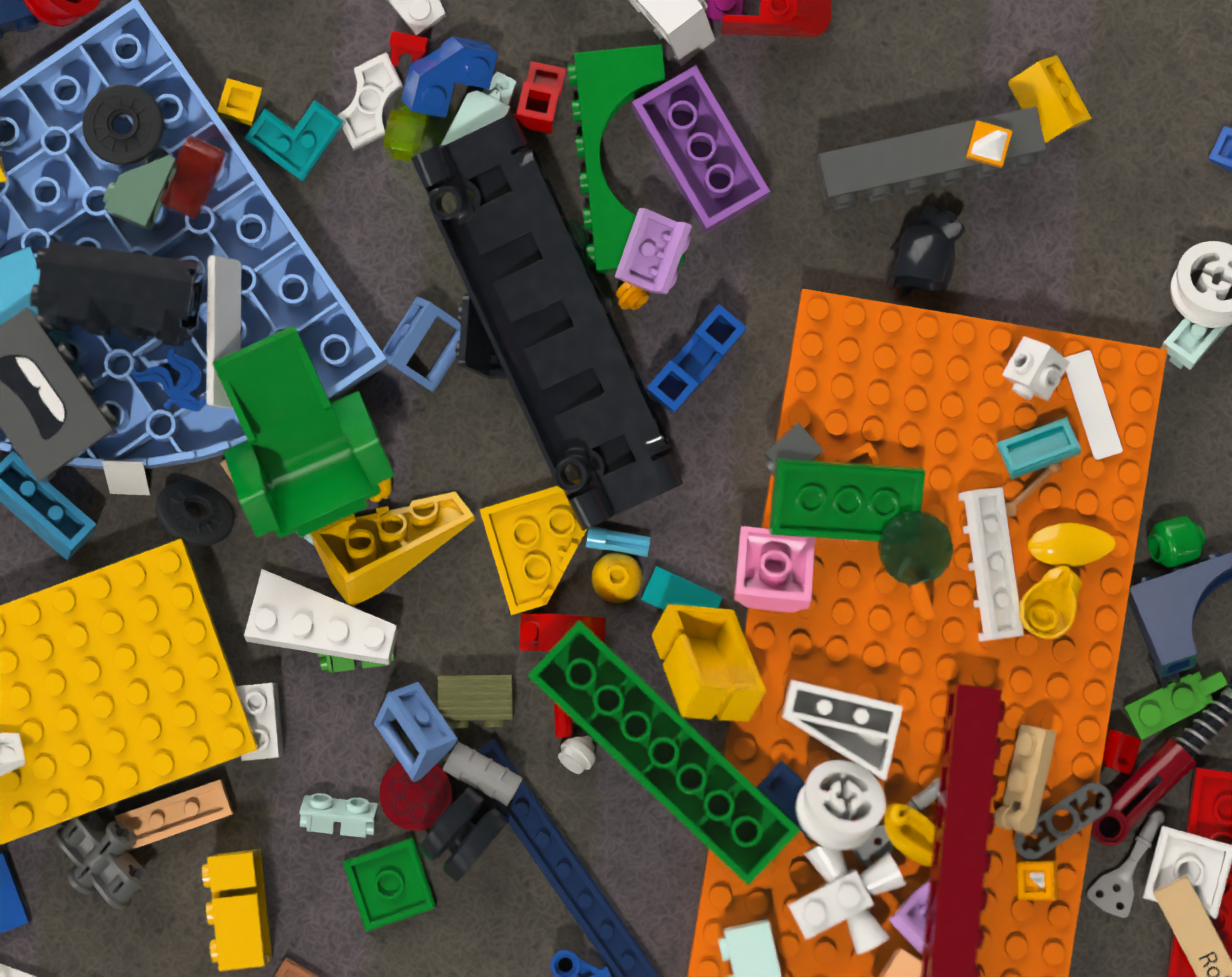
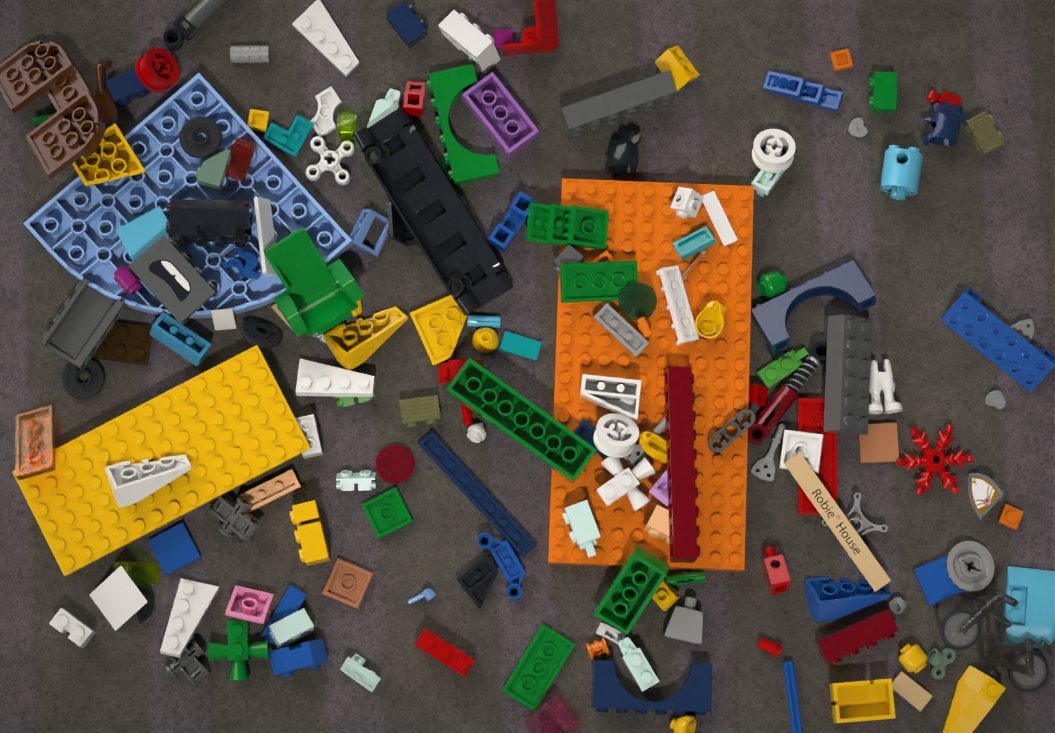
camera: 15 degrees left, 5 degrees down
(358, 183) = (325, 154): none -> white gear
(407, 44) = (342, 80): red tile -> none
(421, 724) = (394, 425): medium blue tile -> none
(432, 78) = (357, 96): blue brick -> none
(462, 833) = (421, 478): black wheel -> none
(482, 773) = (428, 447): light grey axle -> none
(631, 296) = (475, 193): light orange plate -> none
(653, 252) = (483, 168): lavender bracket -> none
(708, 663) = (538, 373): yellow piece -> none
(774, 570) = (566, 321): bright pink slope -> none
(800, 384) = (567, 225): none -> green slope
(877, 600) = (621, 330): none -> light grey plate
(988, 144) = (647, 92): tile -> none
(1026, 780) = (710, 411): tan plate -> none
(1037, 880) = (722, 462): light orange tile -> none
(1070, 544) = (716, 289): yellow arm -> none

